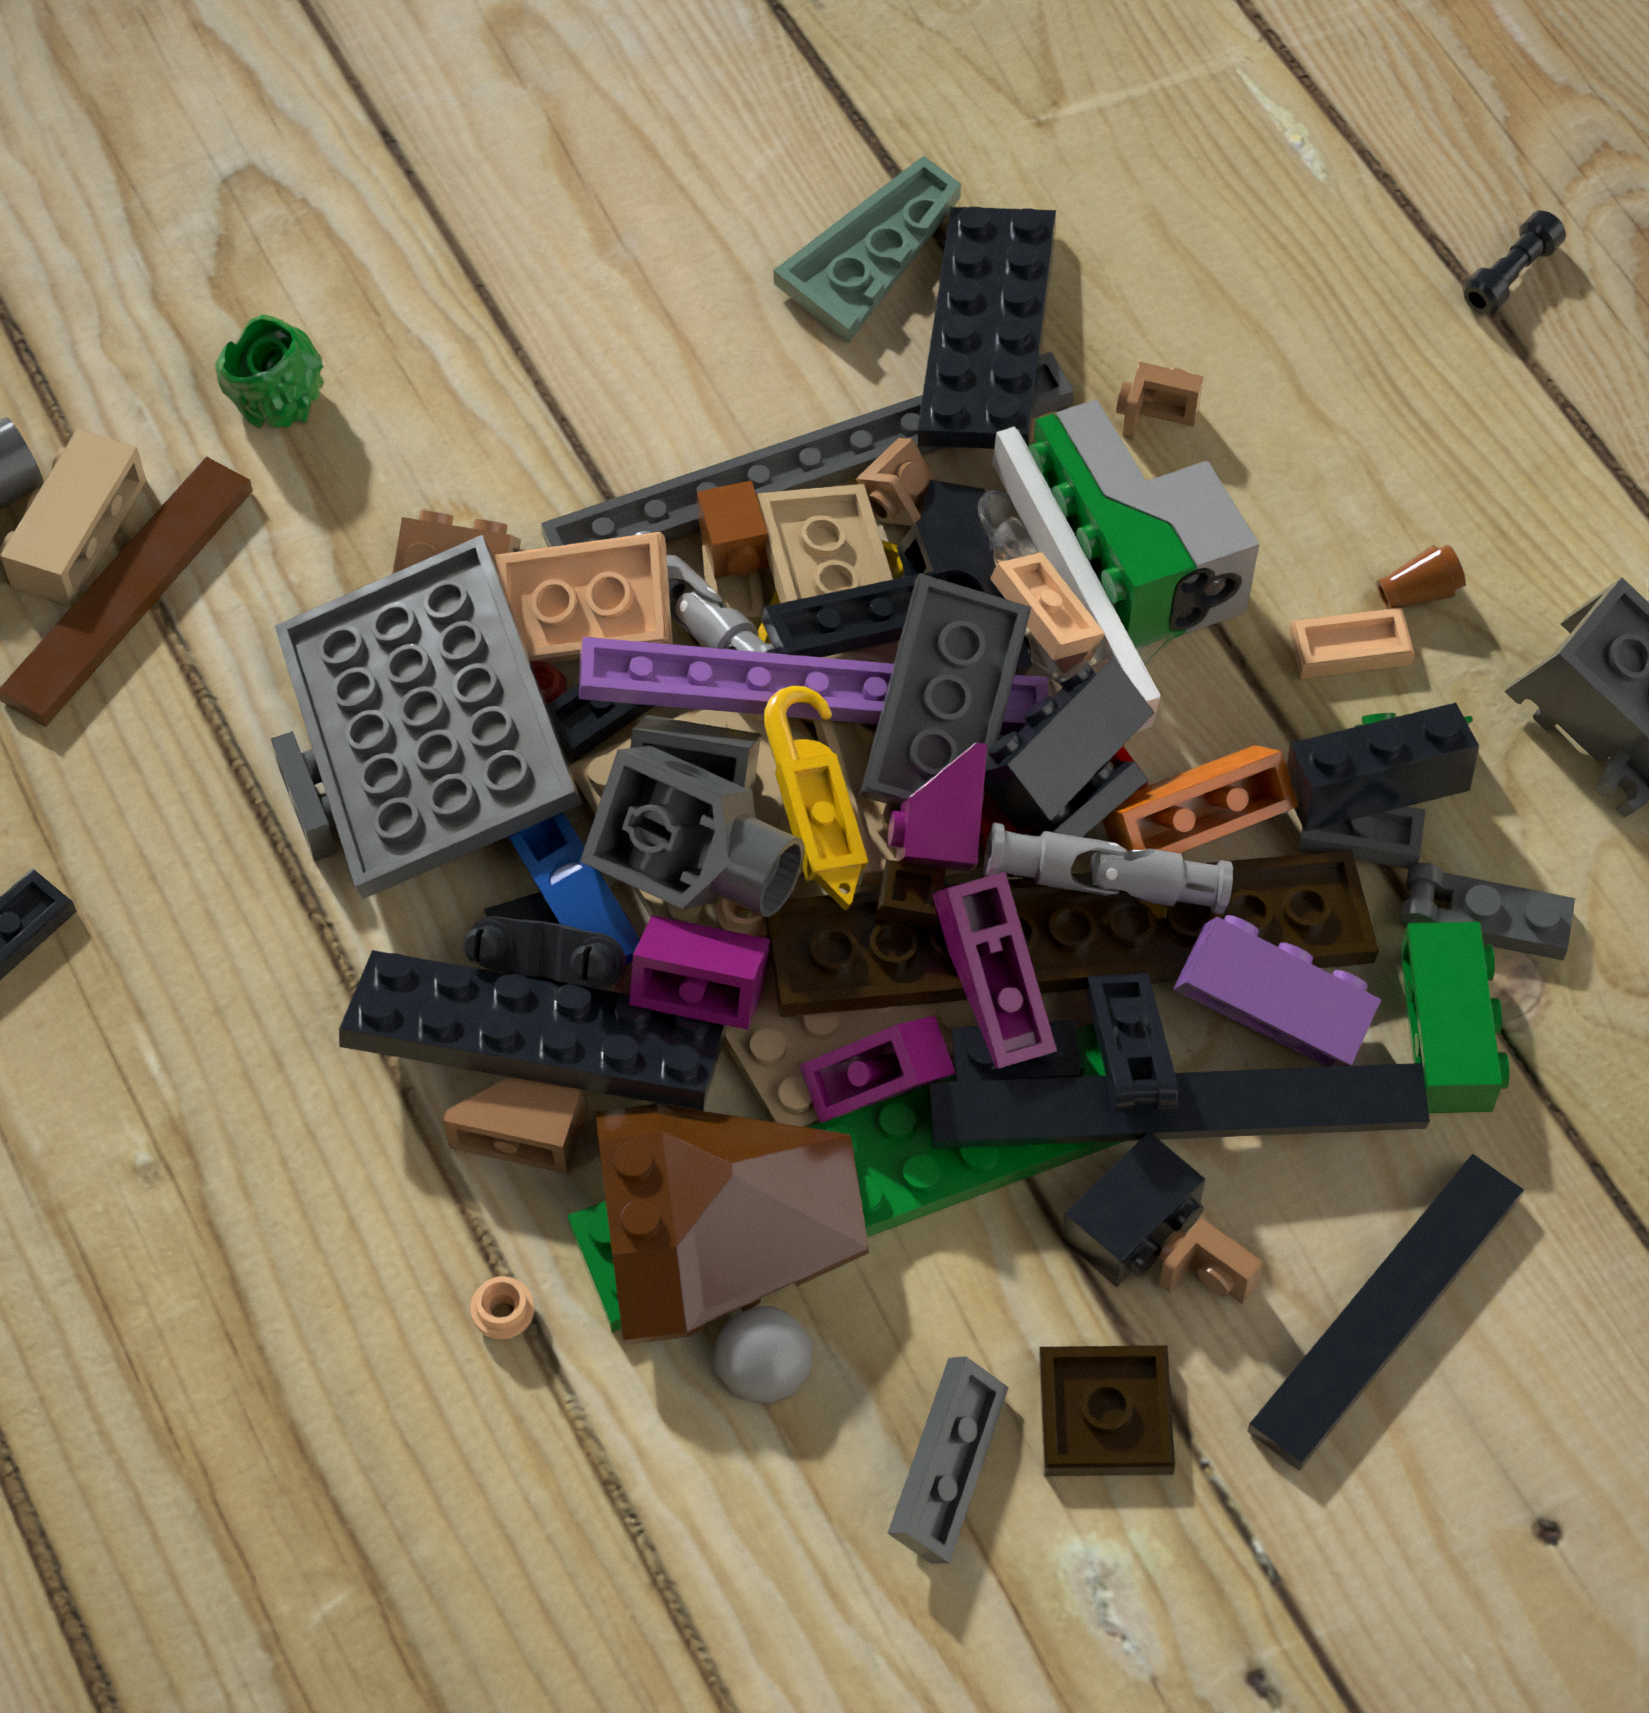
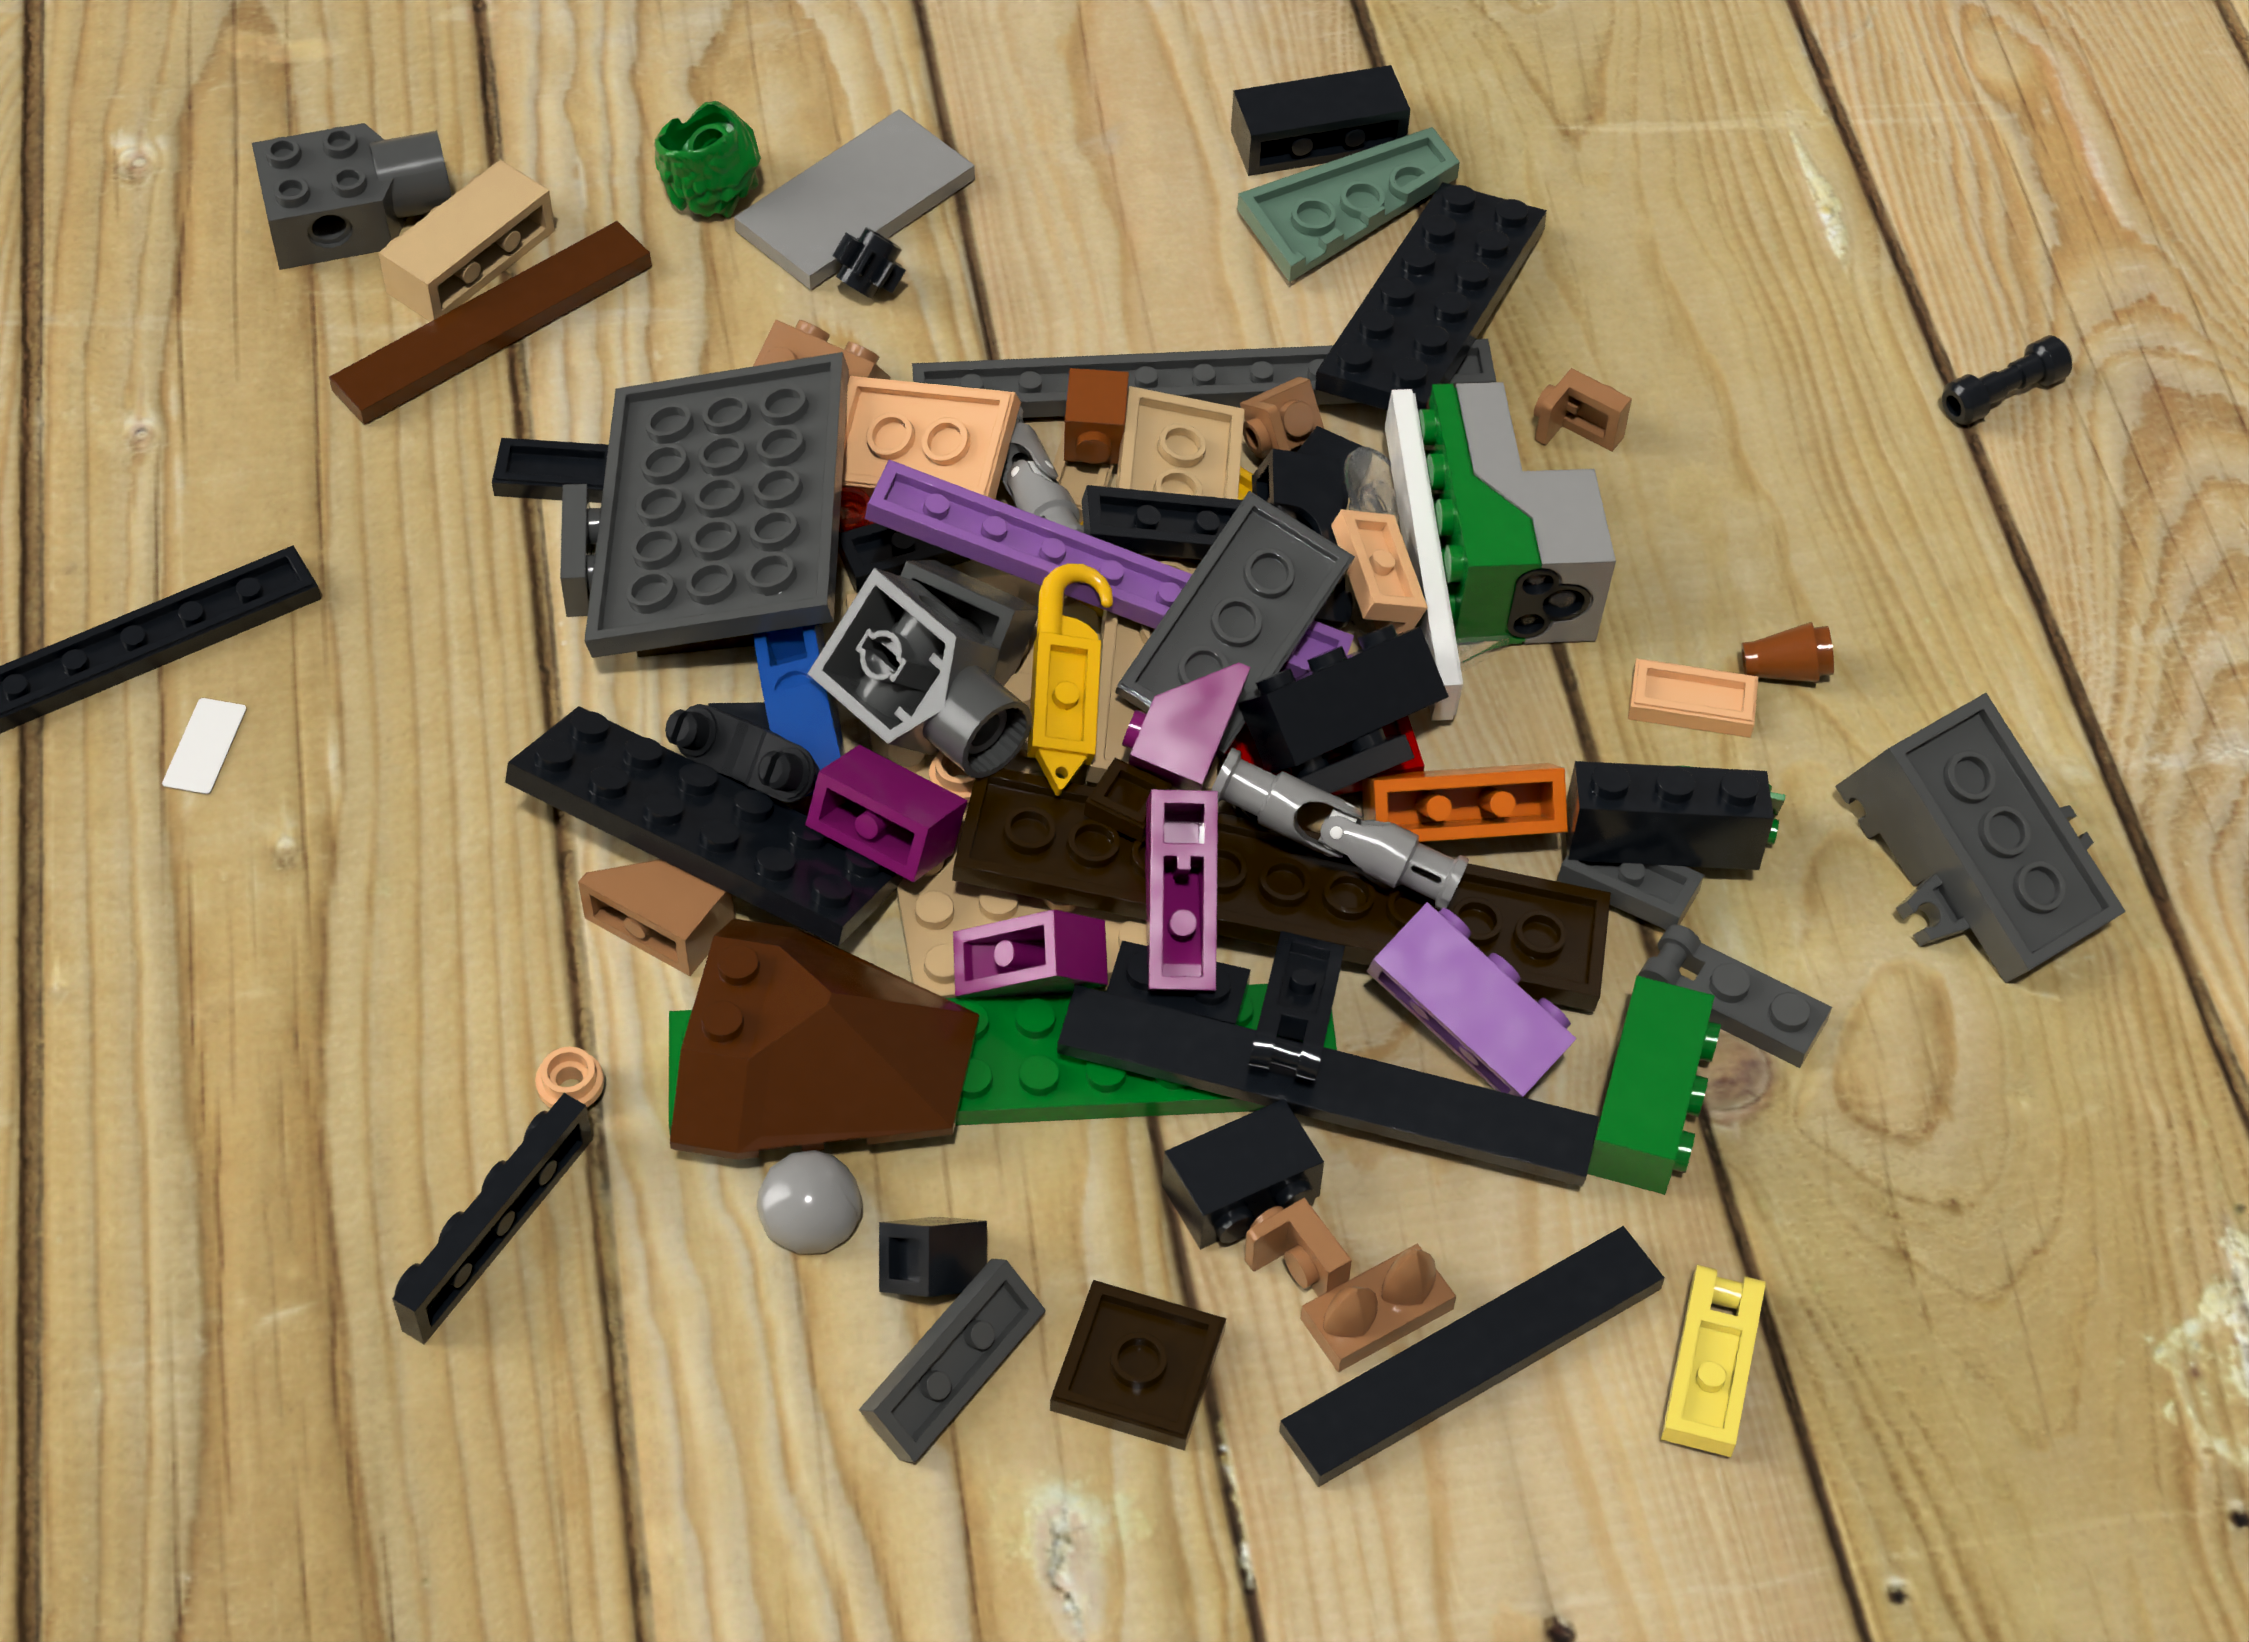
camera: 15 degrees right, 5 degrees down
(27, 1088) = (204, 746): none -> white sticker
(244, 721) = (542, 467): none -> black tile
(417, 371) = (870, 182): none -> light grey tile
(461, 434) = (869, 262): none -> black gear
(479, 1483) = (479, 1234): none -> black plate
(817, 175) = (1317, 119): none -> black brick
(892, 1370) = (930, 1255): none -> black panel
(1291, 1292) = (1378, 1307): none -> medium nougat tile
(1592, 1252) = (1713, 1363): none -> light yellow plate

